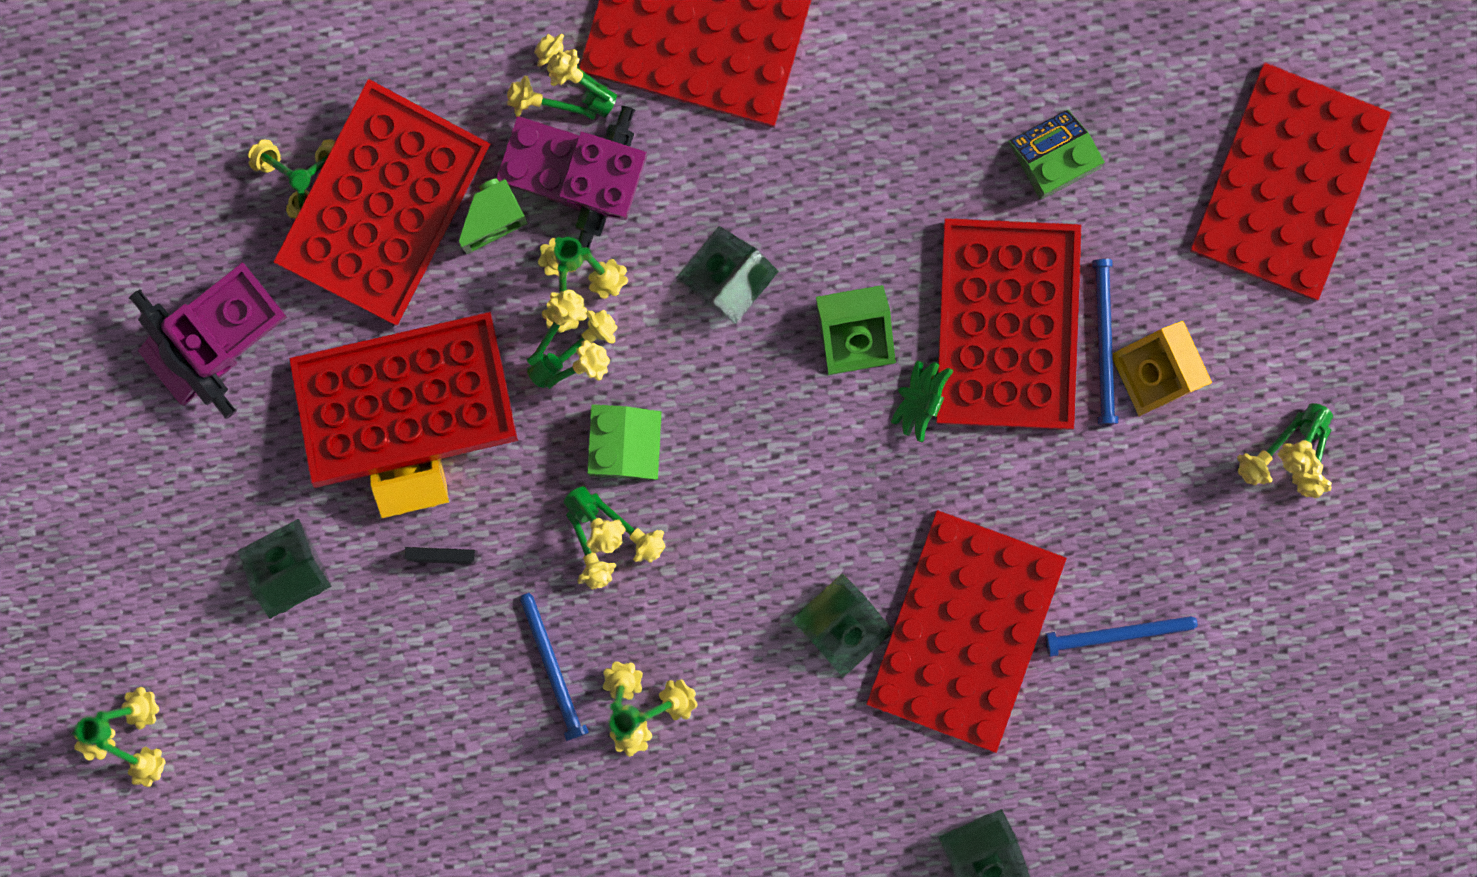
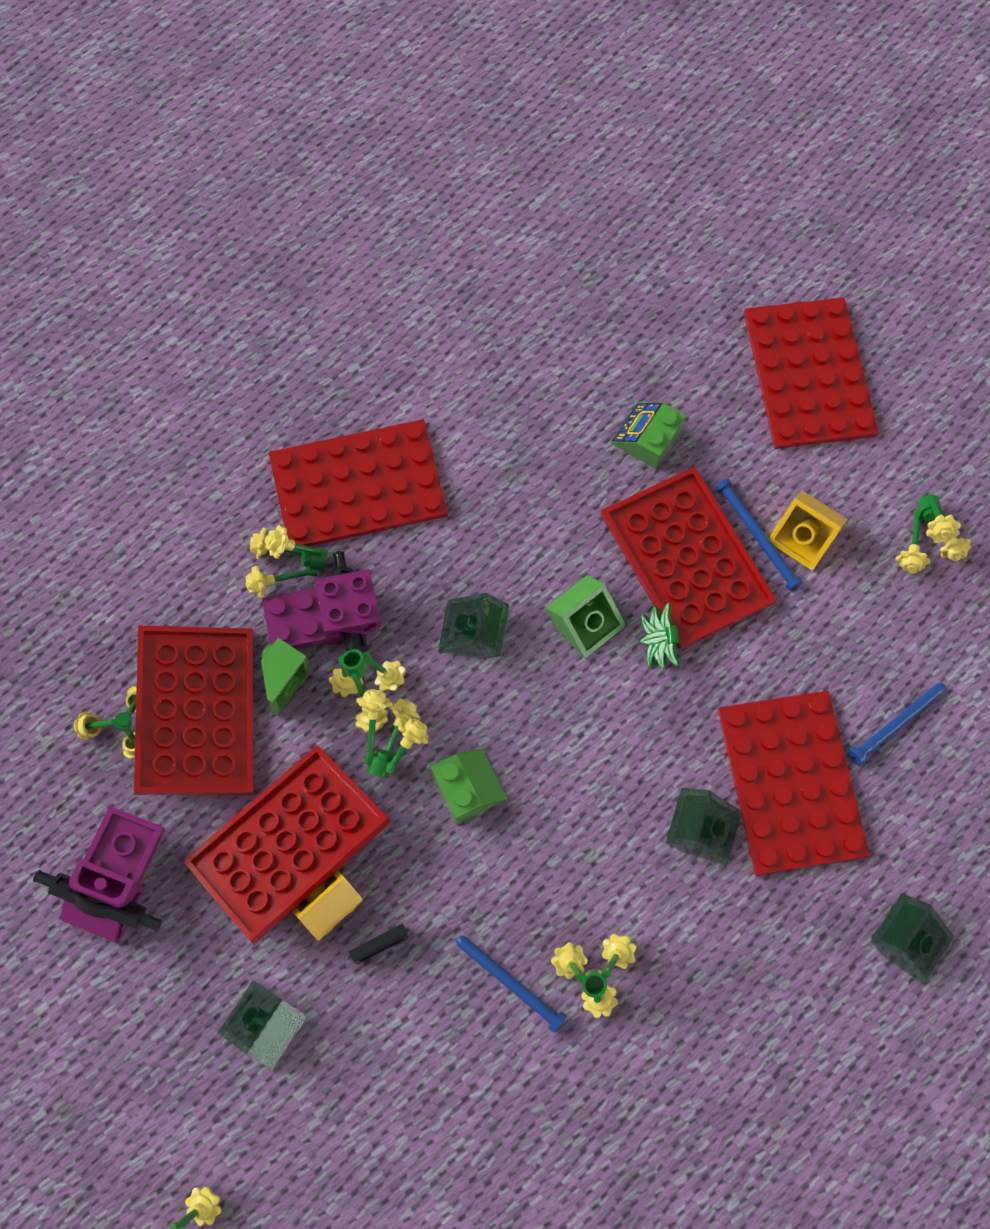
camera: 30 degrees left, 15 degrees down
(605, 536) = (498, 854): light yellow plant -> none

